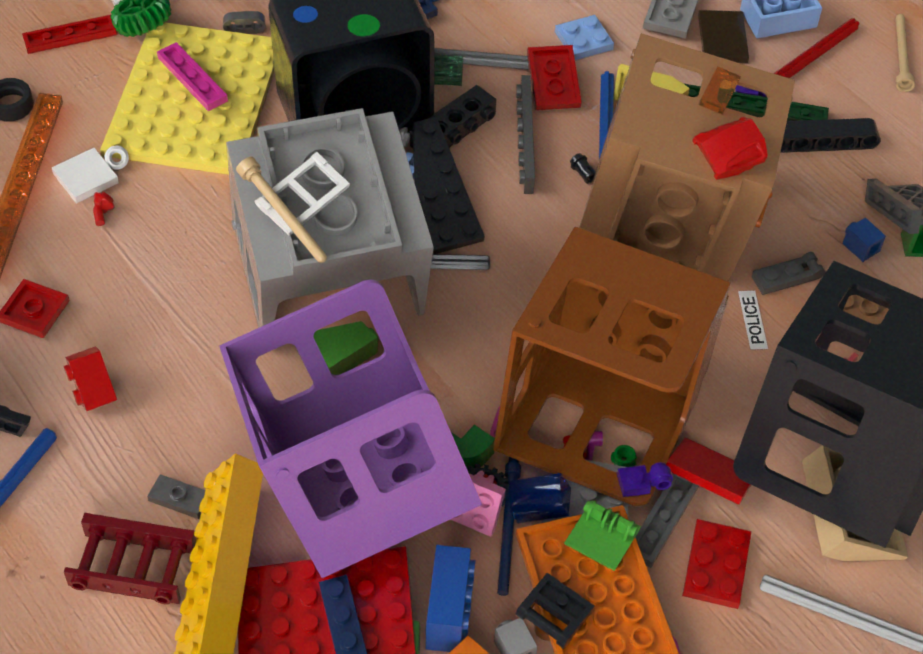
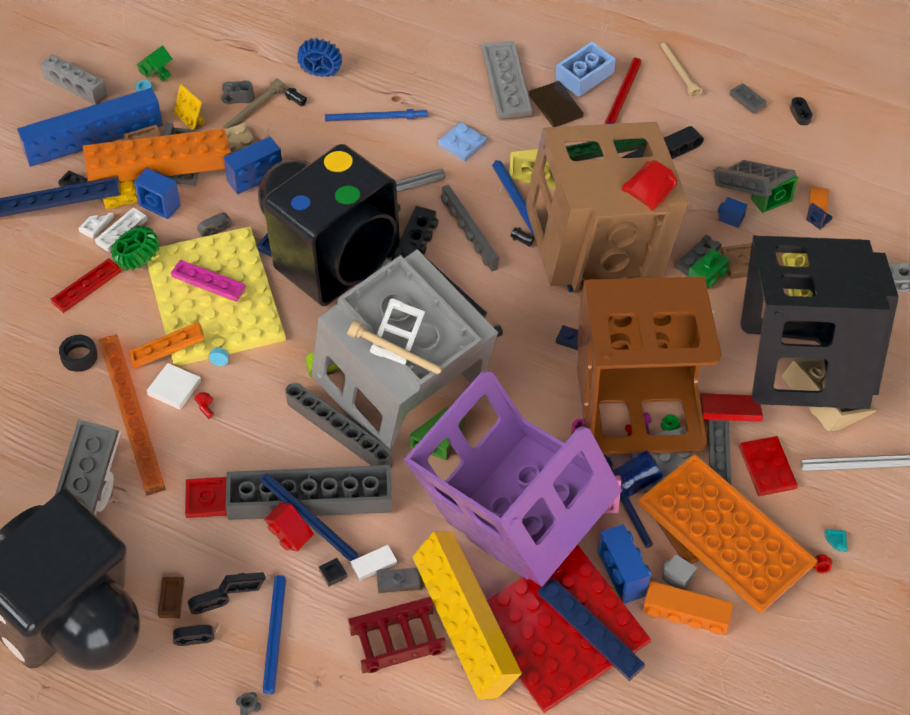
camera: 25 degrees left, 0 degrees up
(103, 127) = (166, 345): none -> orange tile
(111, 452) = (332, 572): none -> black plate
(118, 378) = (309, 517): none -> dark blue axle
(124, 157) = (194, 363): white plate -> none
(139, 349) = (319, 489): none -> dark grey brick
(151, 163) = (219, 356): none -> medium azure tile
(165, 462) = (372, 562): none -> white tile
(223, 282) = (314, 408): none -> dark grey beam
(554, 77) = (463, 178): red plate -> none
(559, 602) = (699, 533): black plate -> none
(602, 535) = (696, 478): bright green hinge -> none
(637, 481) = (693, 435): dark purple plate -> none
(720, 90) = (618, 148): clear orange tile -> none
(786, 294) = (712, 266): none -> green brick

